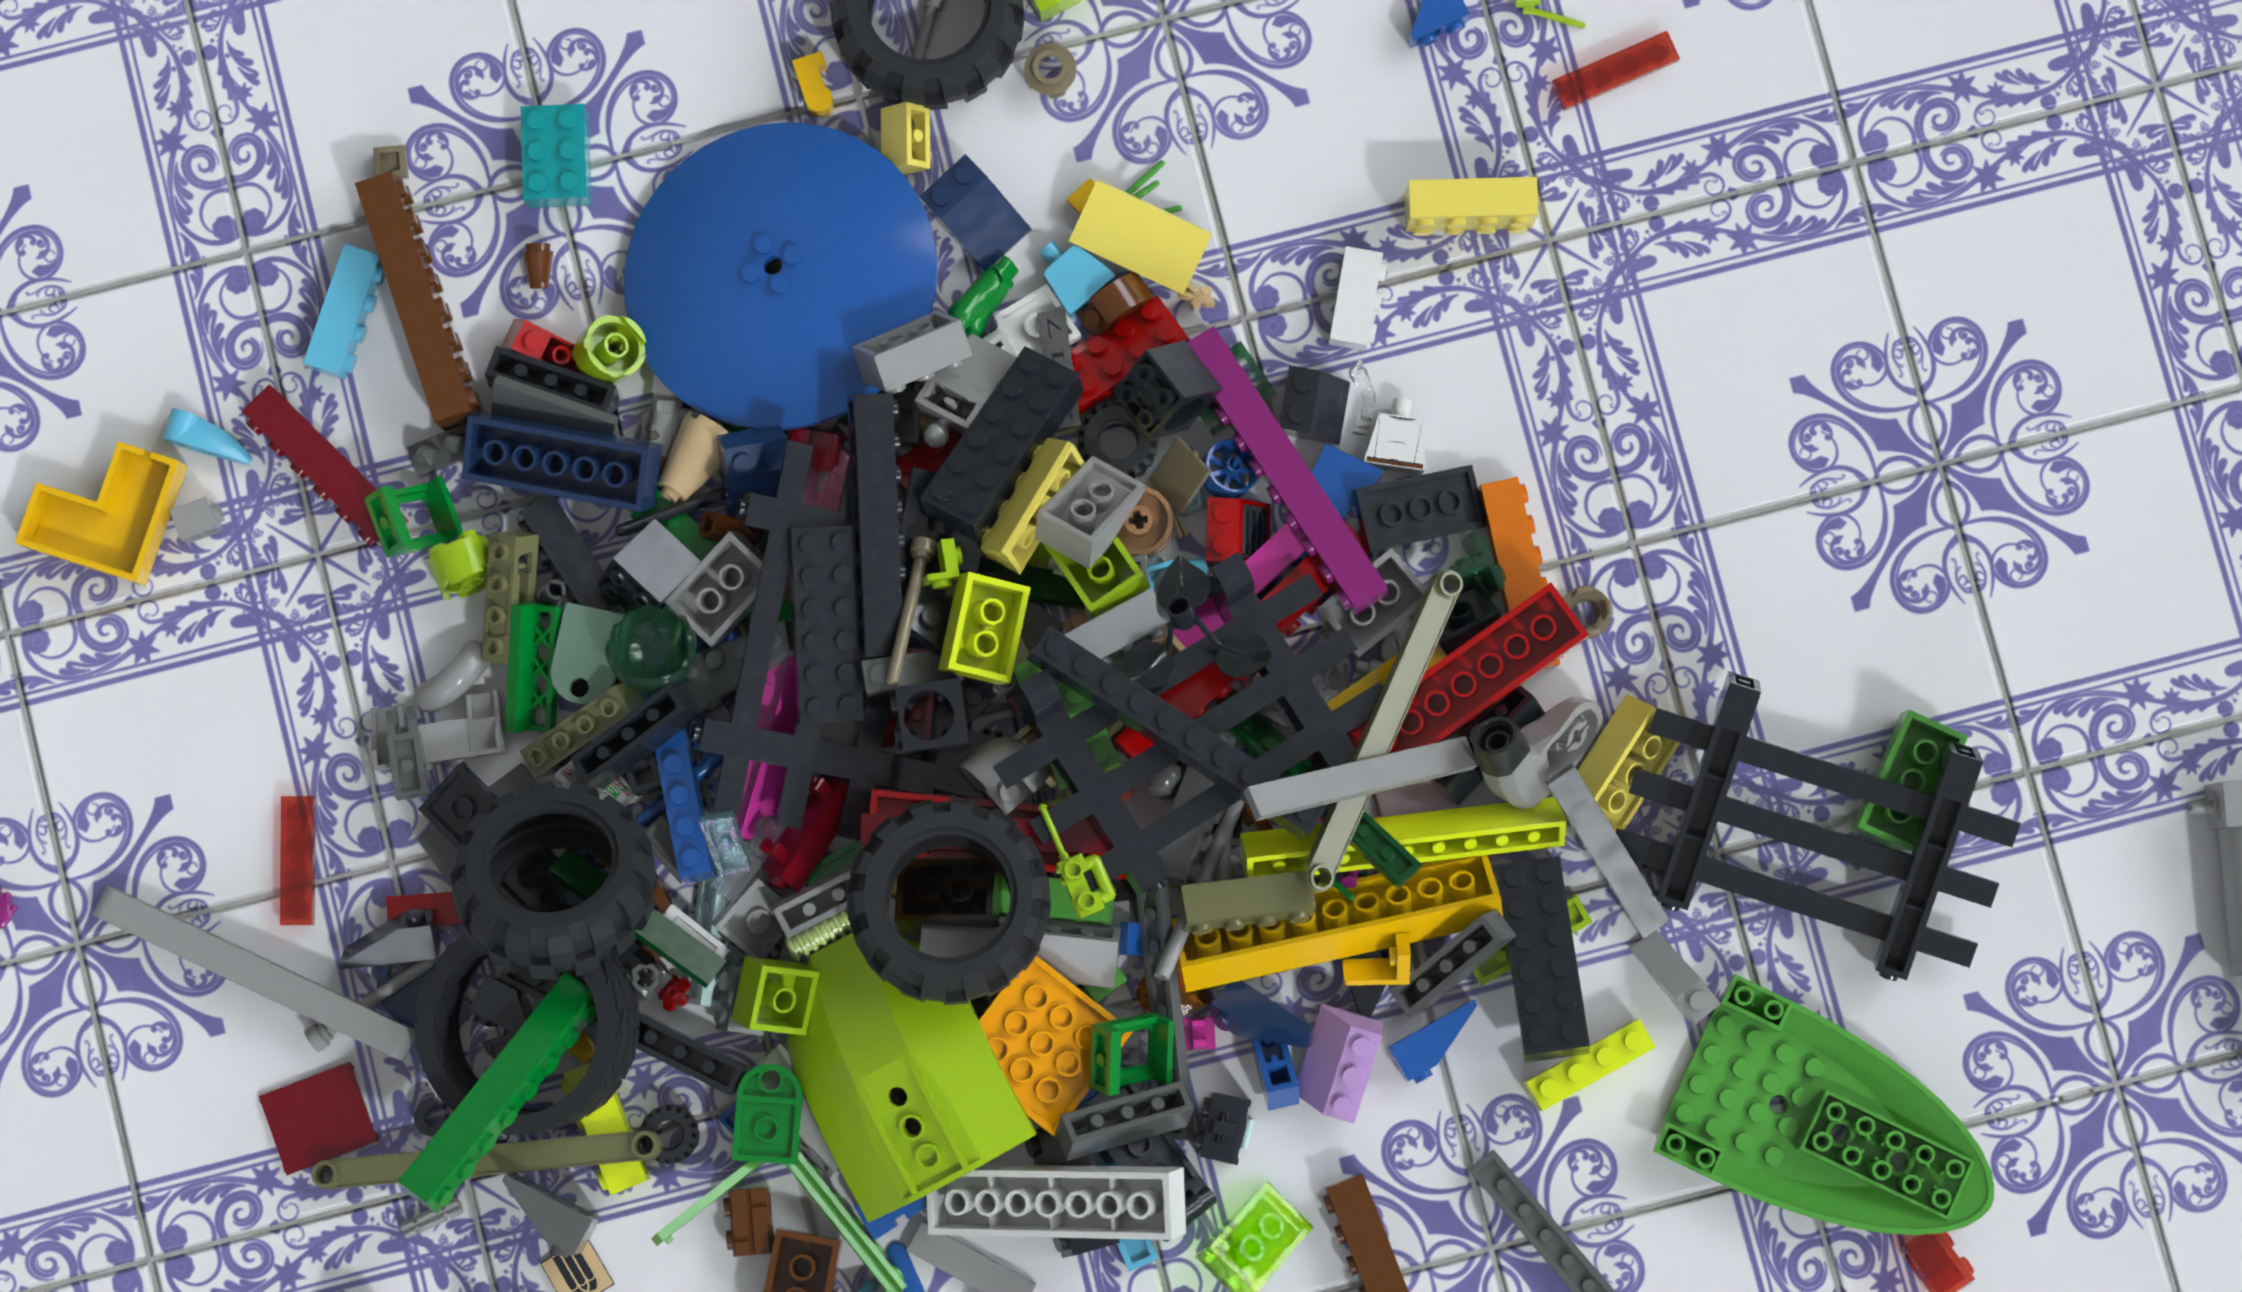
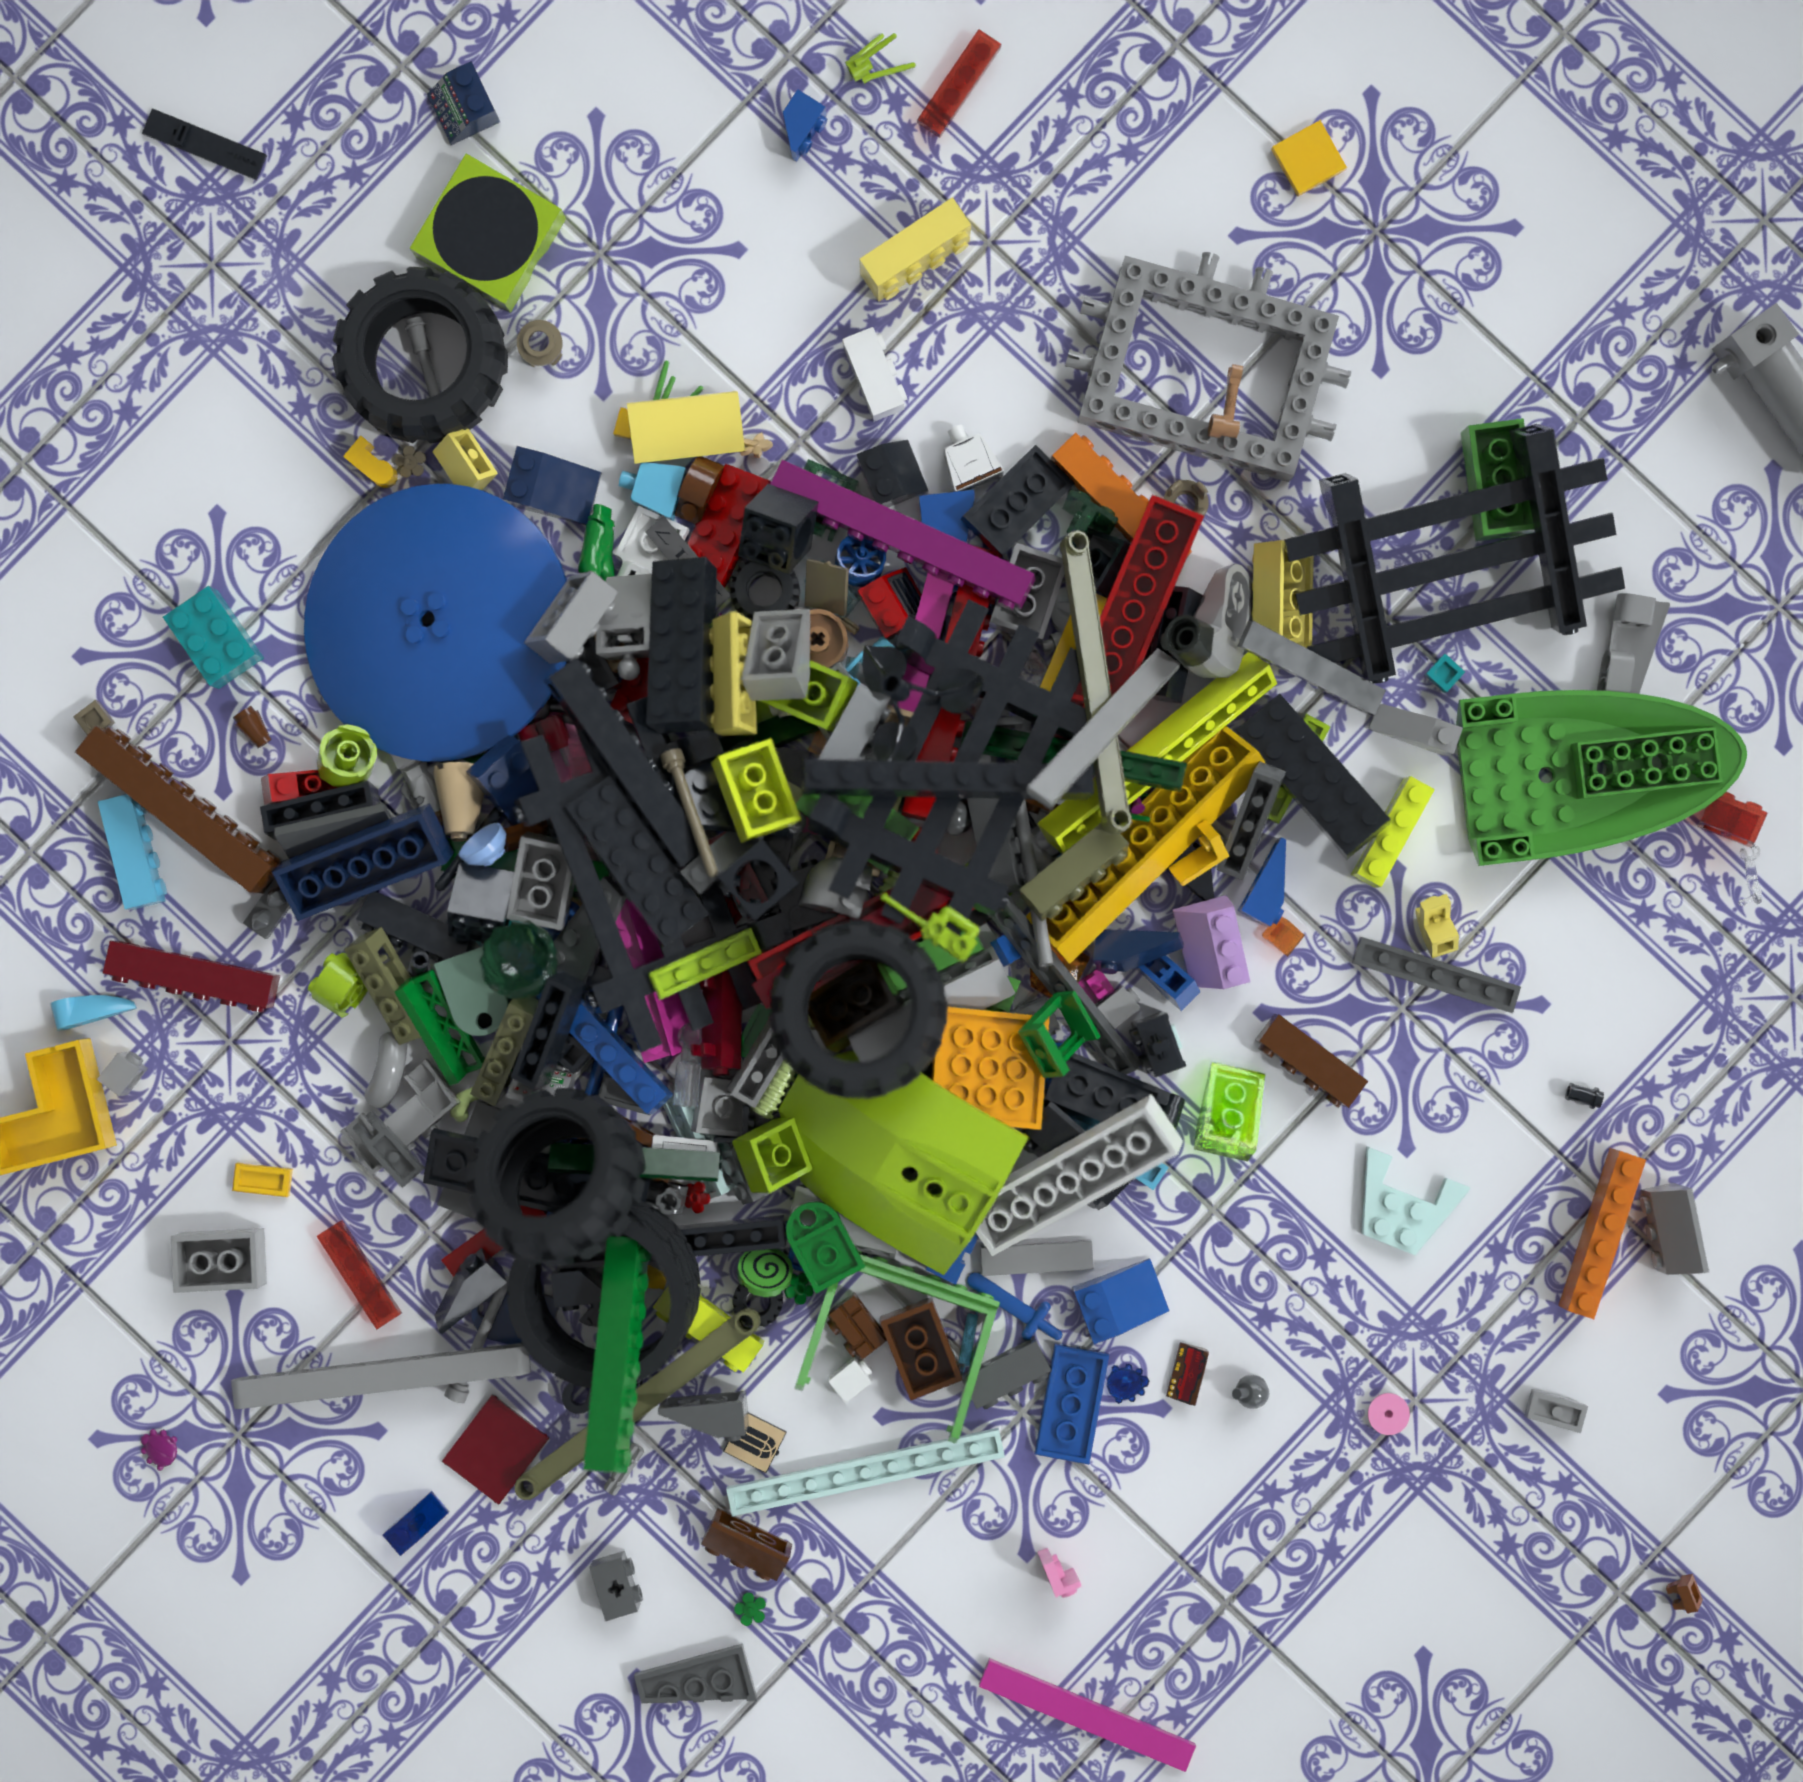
camera: 30 degrees left, 5 degrees up
(172, 759) = (218, 1260): none -> light grey brick
(194, 1140) = (415, 1523): none -> clear blue slope
(263, 708) = (262, 1179): none -> yellow tile
(391, 526) = (266, 988): green window -> none
(497, 763) = (460, 1111): none -> yellowish green arm
(688, 518) = (484, 846): none -> light blue piece
(695, 1108) = (765, 1272): none -> bright green tile
(712, 1270) = (851, 1378): none -> white brick
(717, 1147) = (799, 1289): none -> green plant
(725, 843) = (665, 1068): clear light blue plate -> none
(828, 765) = (704, 963): none -> lime tile
(853, 105) = (410, 462): none -> dark tan plant
(949, 560) = (697, 755): lime bracket -> none
(1124, 1120) = (1084, 1086): dark grey brick -> none
(1209, 1067) = (1119, 1006): none -> light grey brick
(1361, 380) = (915, 433): clear piece -> none
(1417, 1100) = (1283, 936): none -> clear orange slope
(1575, 1186) = (1436, 925): none -> light yellow brick
(1668, 559) = (1225, 424): none -> medium nougat brick
(1728, 421) = (1235, 304): none -> light grey brick
(1738, 940) = (1444, 673): none -> teal plate
(1915, 352) = (1308, 158): none -> yellow tile
(1945, 1027) = (1632, 642): none -> light grey panel

